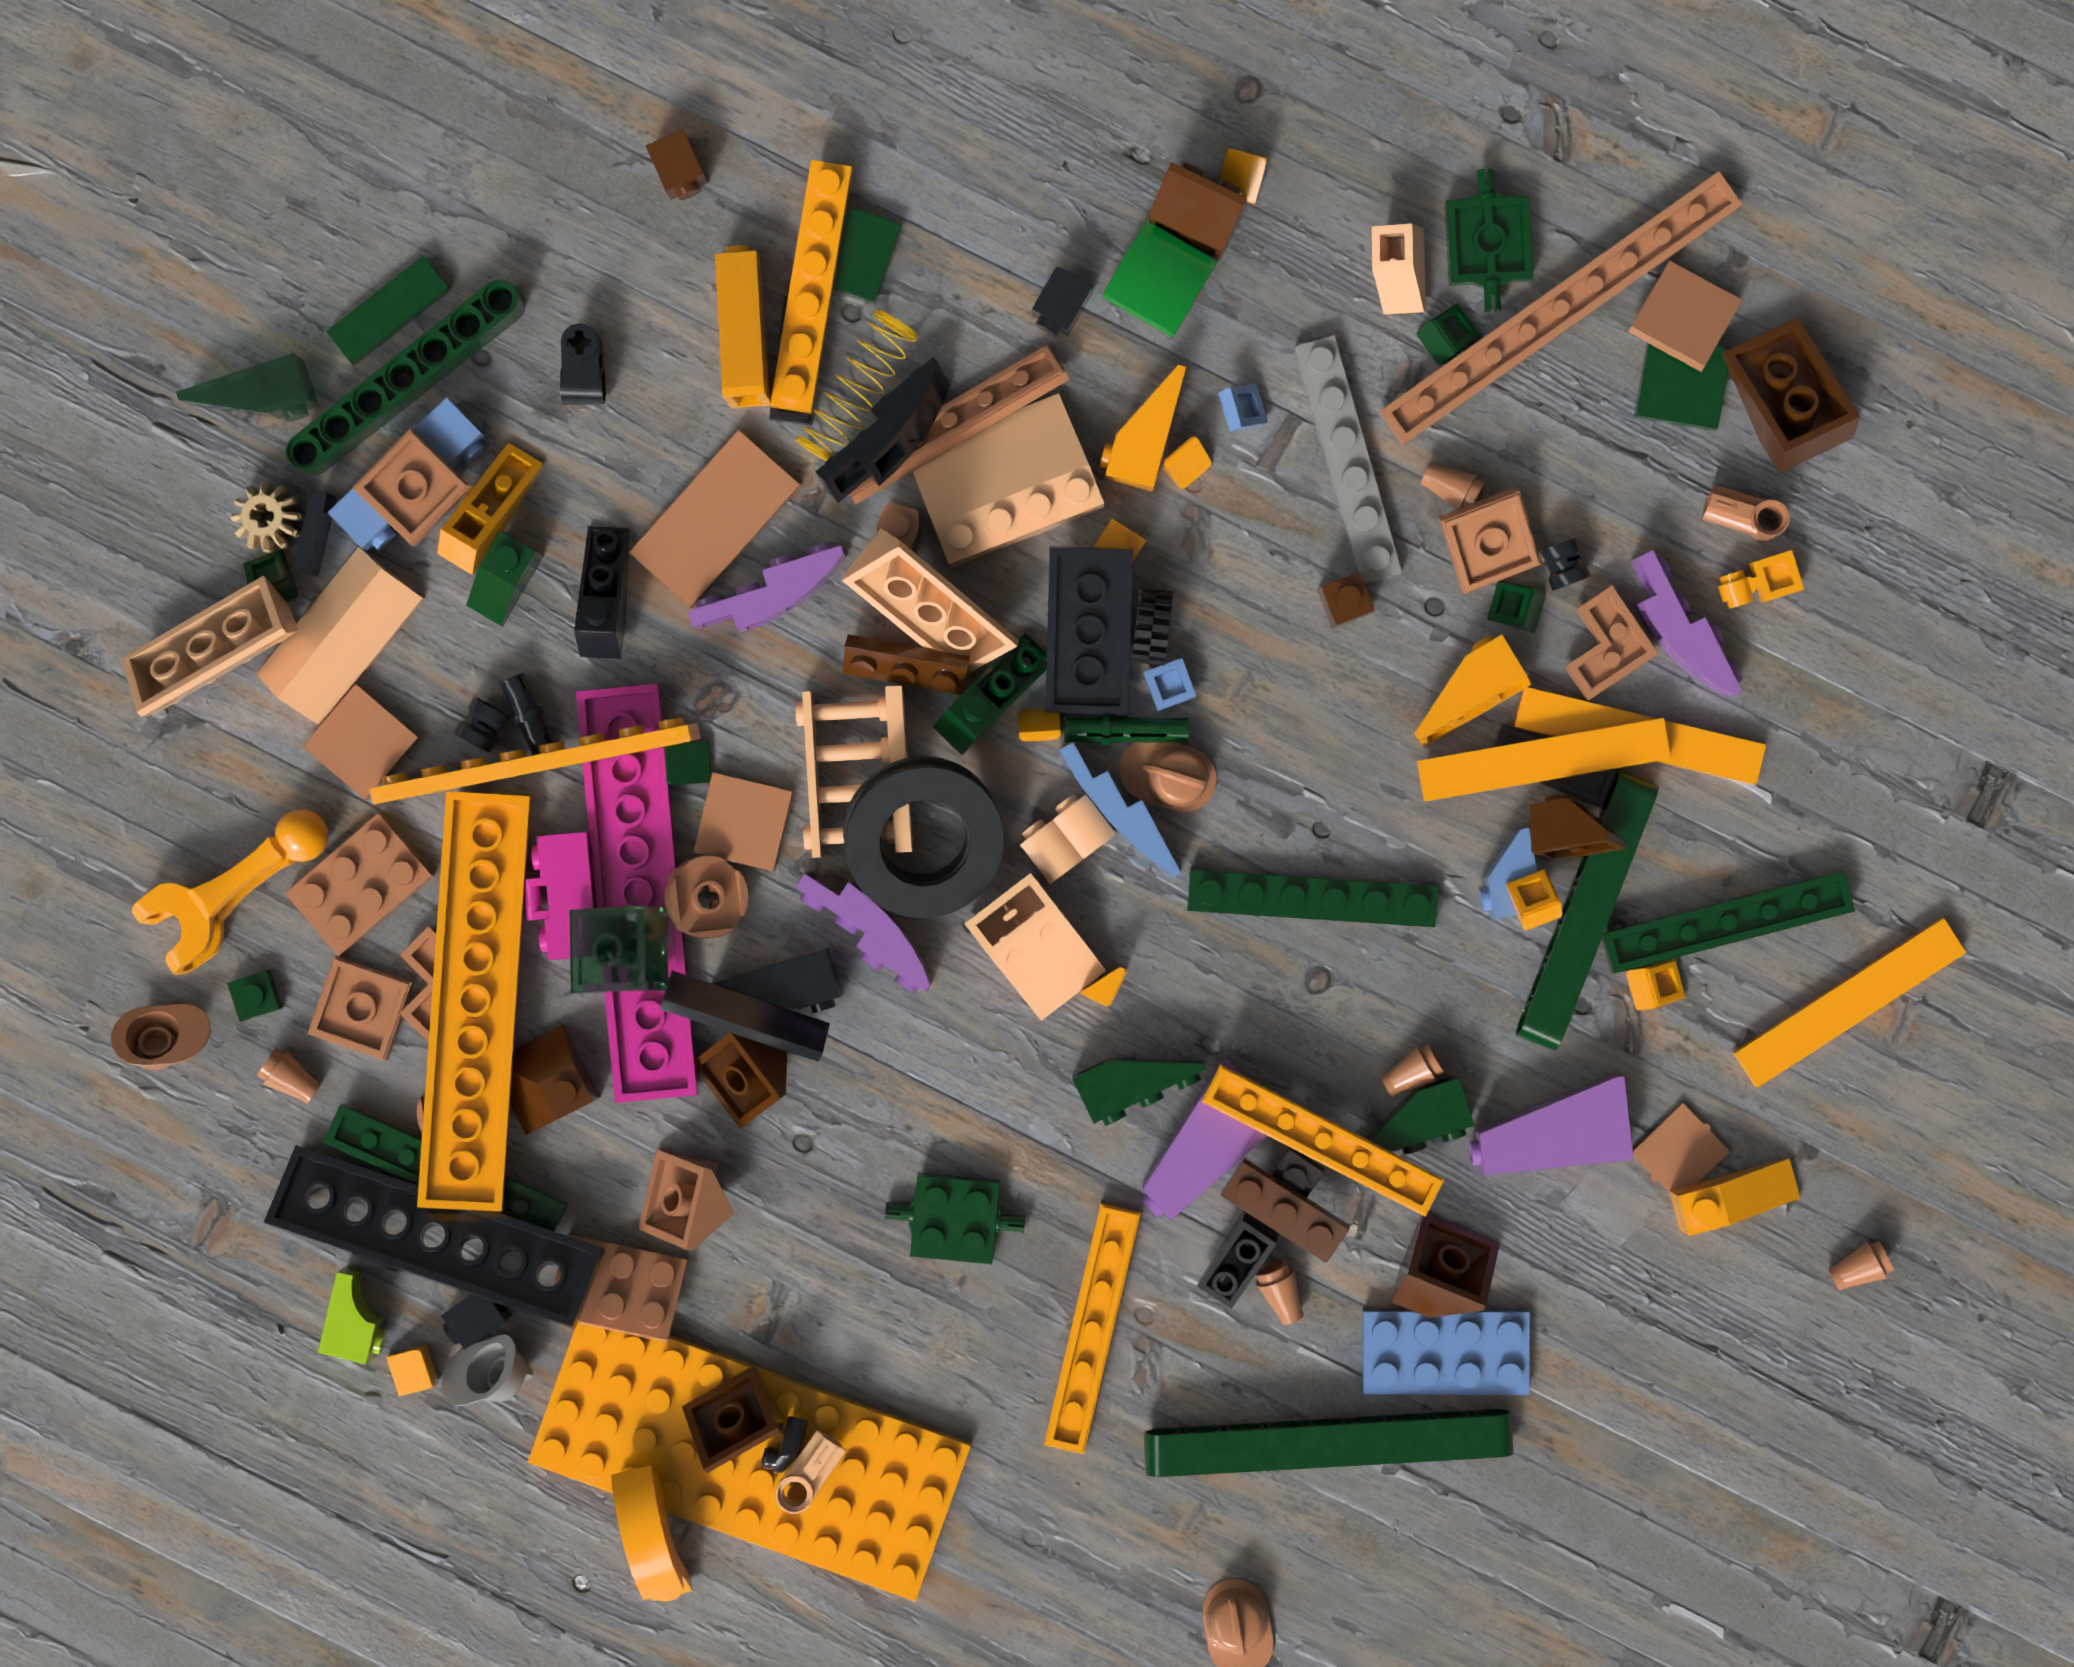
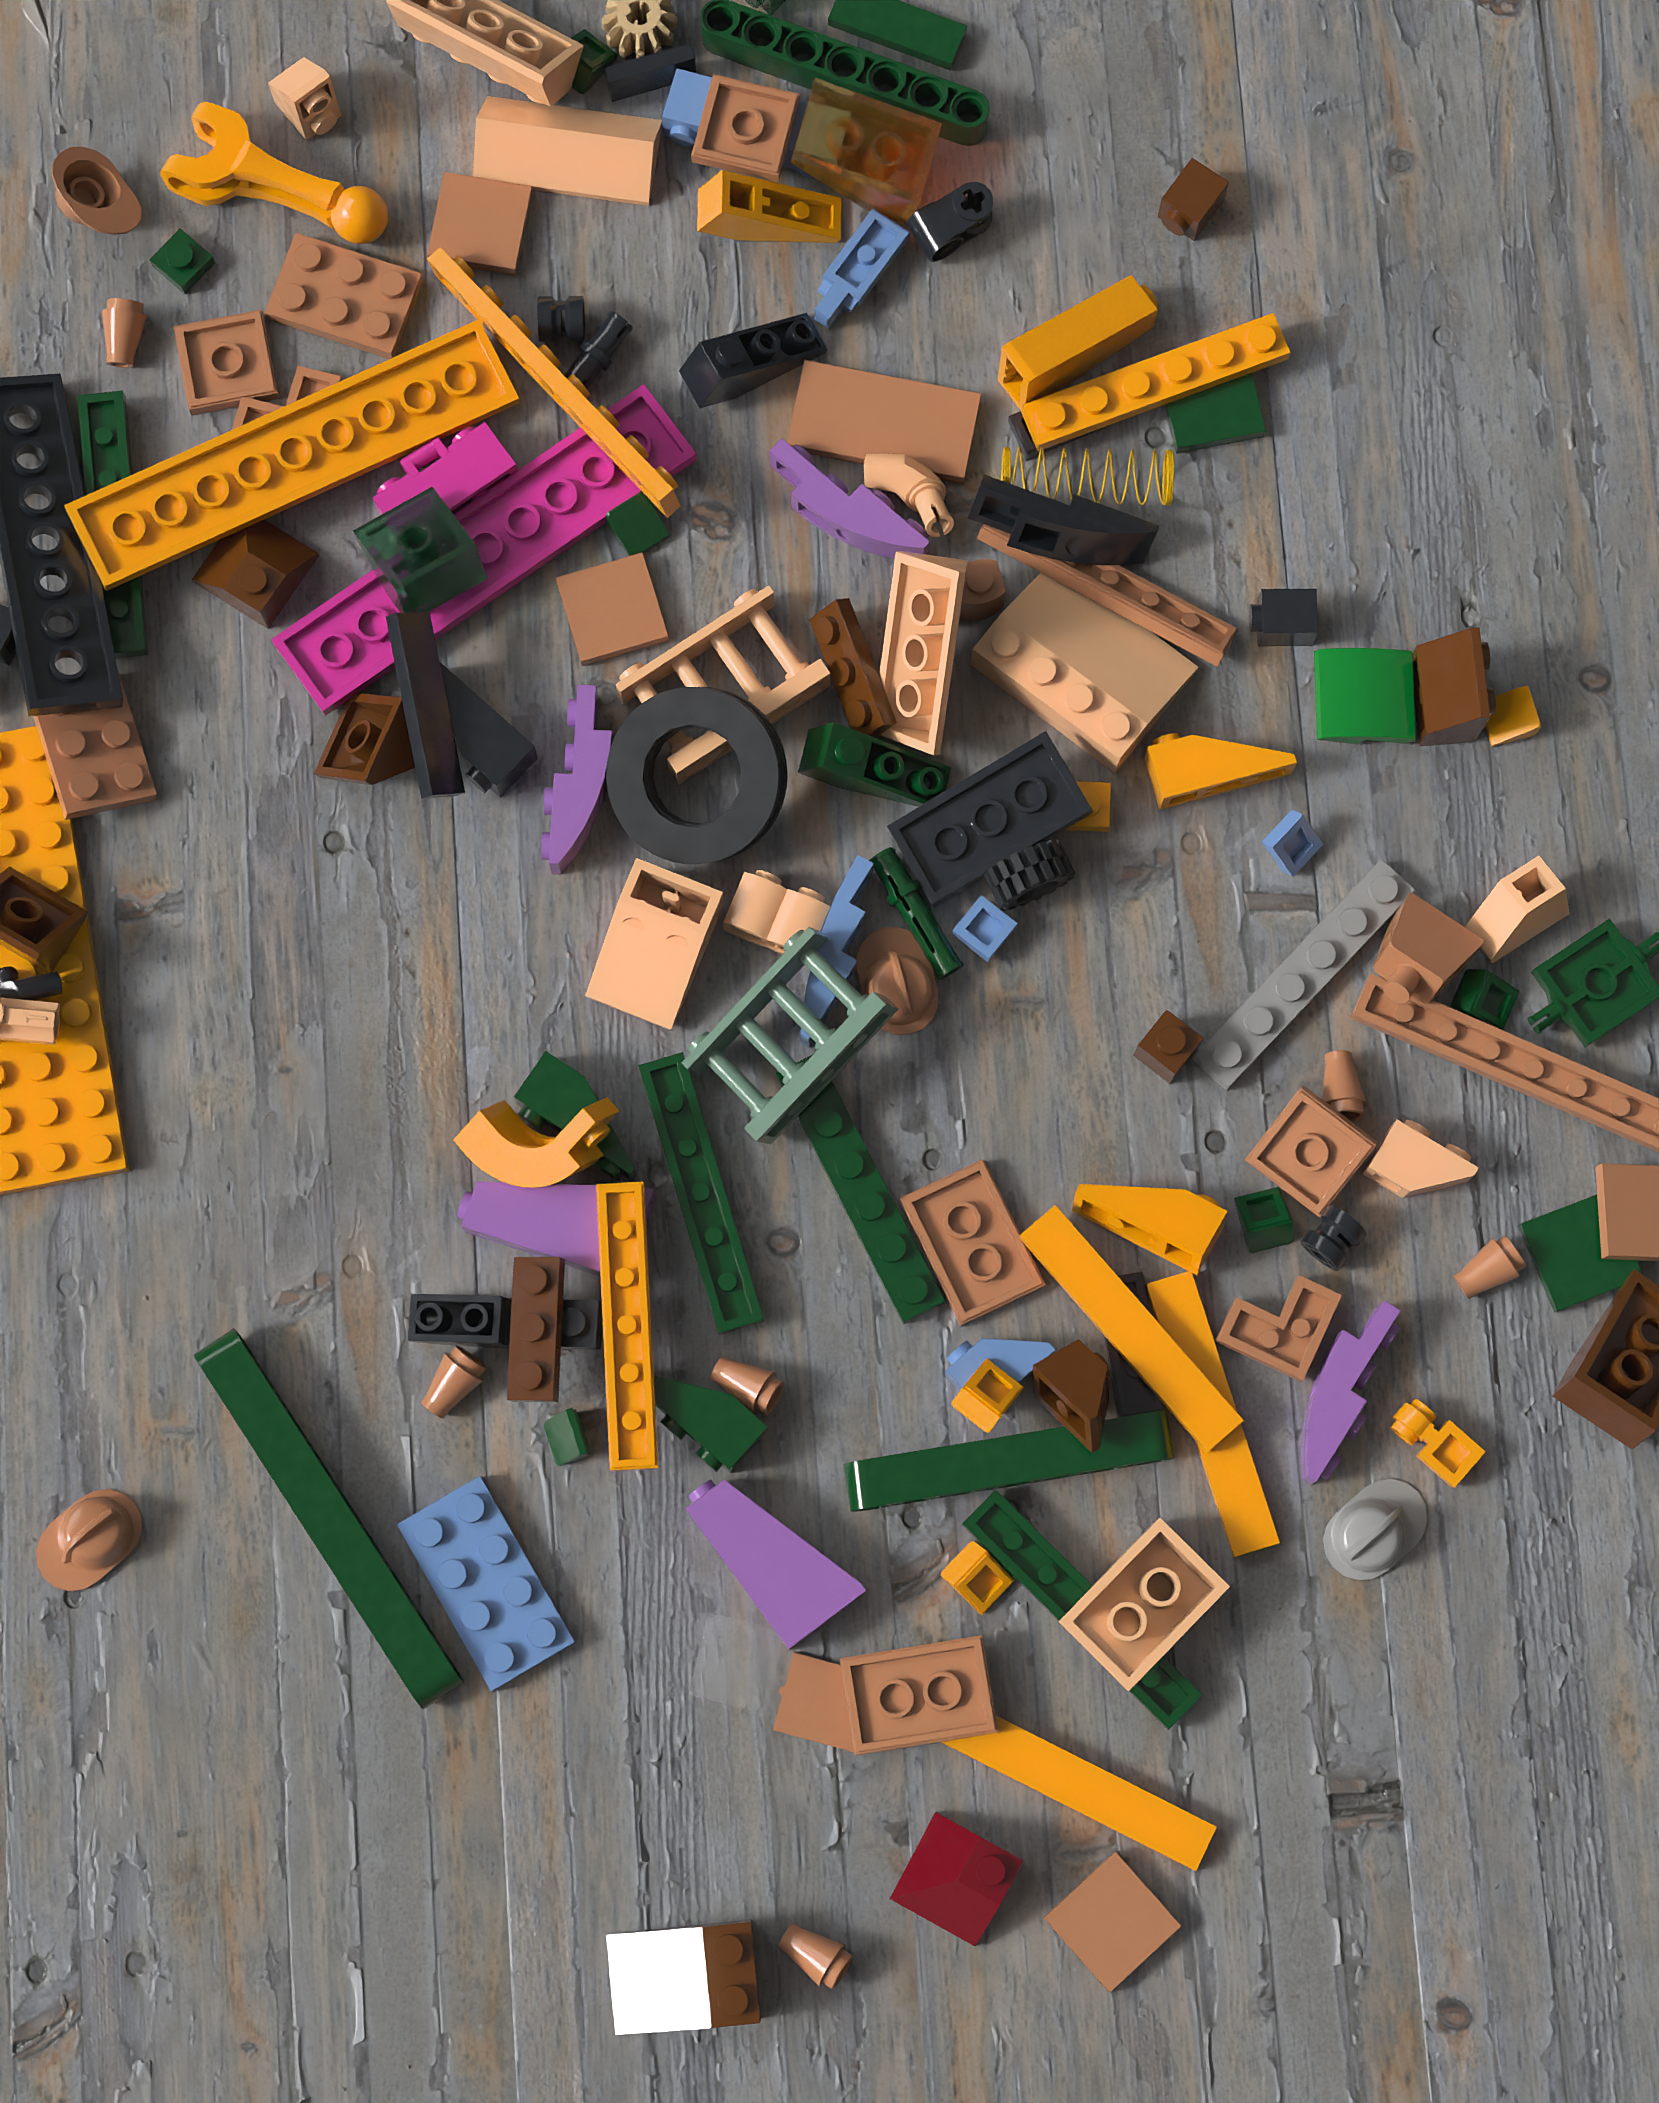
camera: 60 degrees right, 10 degrees down
(176, 821) = (306, 98): none -> light nougat slope
(487, 402) = (866, 149): none -> clear orange slope
(502, 578) = (711, 260): dark green slope -> none
(576, 462) = (859, 266): none -> medium blue hinge
(683, 1200) = (214, 756): nougat slope -> none
(723, 912) = (545, 613): nougat plate -> none
(785, 527) = (913, 484): none -> light nougat arm
(954, 1218) = (343, 1025): dark green plate -> none
(1038, 725) = (869, 829): light orange slope -> none
(1092, 1328) = (310, 1220): light orange tile -> none
(1106, 987) = (655, 1036): light orange slope -> none
(1149, 1138) = (522, 1157): none -> light orange arch
(1187, 463) = (1207, 822): light orange slope -> none
(1202, 860) = (833, 1046): none -> sand green fence
(1247, 1022) = (701, 1194): none -> dark green plate
(1373, 1229) = (567, 1437): none -> dark green slope
(1389, 362) = (1422, 952): none -> nougat torso
(1404, 838) = (972, 1242): none -> nougat tile
(1445, 1270) = (568, 1529): reddish brown slope -> none
(1546, 468) = (1414, 1164): none -> light nougat slope
(1656, 459) = (1490, 1267): none -> nougat cone
(1720, 1080) = (918, 1695): none -> nougat tile
(1734, 1197) = (813, 1782): light orange slope -> none
(1741, 512) = (1490, 1381): nougat piece -> none
(1756, 876) = (1144, 1604): none -> light nougat slope
(1795, 665) = (1375, 1529): none -> light grey piece
(1822, 1371) = (684, 1978): none -> slope
(1867, 1129) = (956, 1879): none -> dark red slope
(1964, 1035) = (1112, 1921): none -> nougat tile

